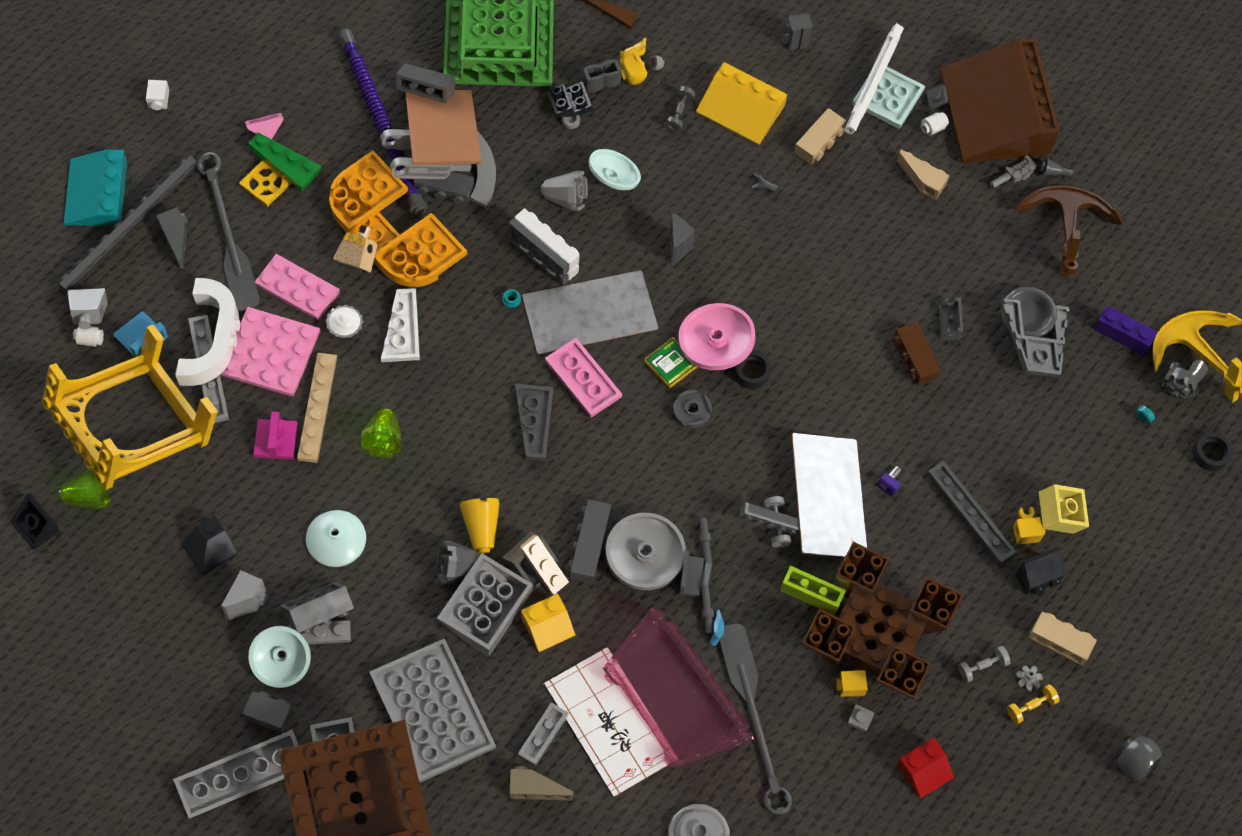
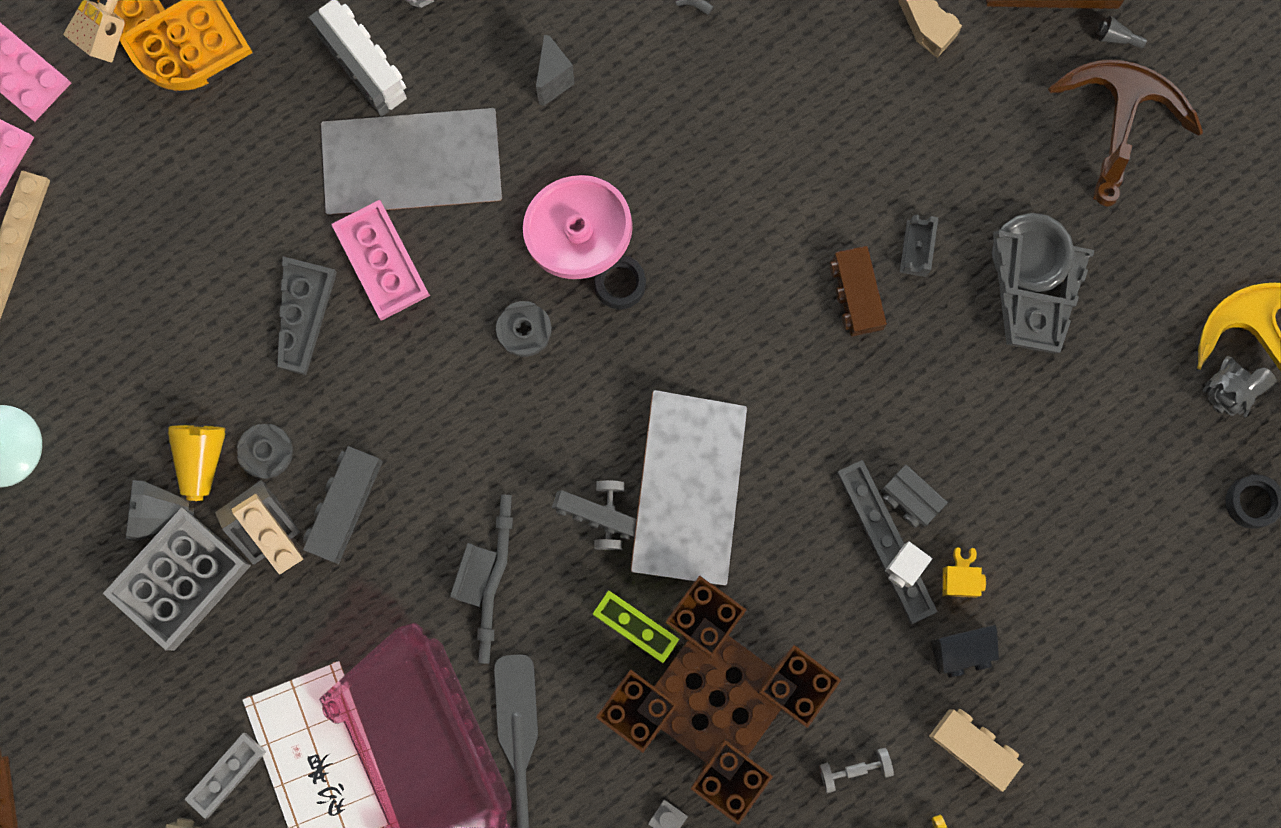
camera: 15 degrees right, 15 degrees up
(344, 321) = (63, 130): white piece -> none
(382, 434) = (84, 305): clear neon green cone -> none
(402, 333) = (145, 151): white wing -> none
(437, 709) = (82, 717): light grey plate -> none
(514, 294) = (302, 119): teal plate -> none
(526, 514) = (273, 454): none -> dark grey tile
(547, 622) = (261, 616): yellow slope -> none
(645, 551) = (413, 533): light grey dish -> none
(669, 363) = (506, 255): tile -> none
(718, 629) = (495, 658): dark azure bar -> none
(852, 683) = (664, 770): yellow brick -> none
(888, 483) = (777, 478): dark purple piece -> none
(983, 480) = (913, 497): none -> dark grey brick
(990, 521) = (907, 565): none -> white brick
(1017, 172) = (1063, 31): light grey piece -> none
(1029, 678) = (910, 797): light grey plant -> none
(1063, 509) = (1018, 561): light yellow brick -> none
(1125, 330) = (1168, 299): dark purple brick -> none
(1145, 414) = (1168, 431): teal tile -> none

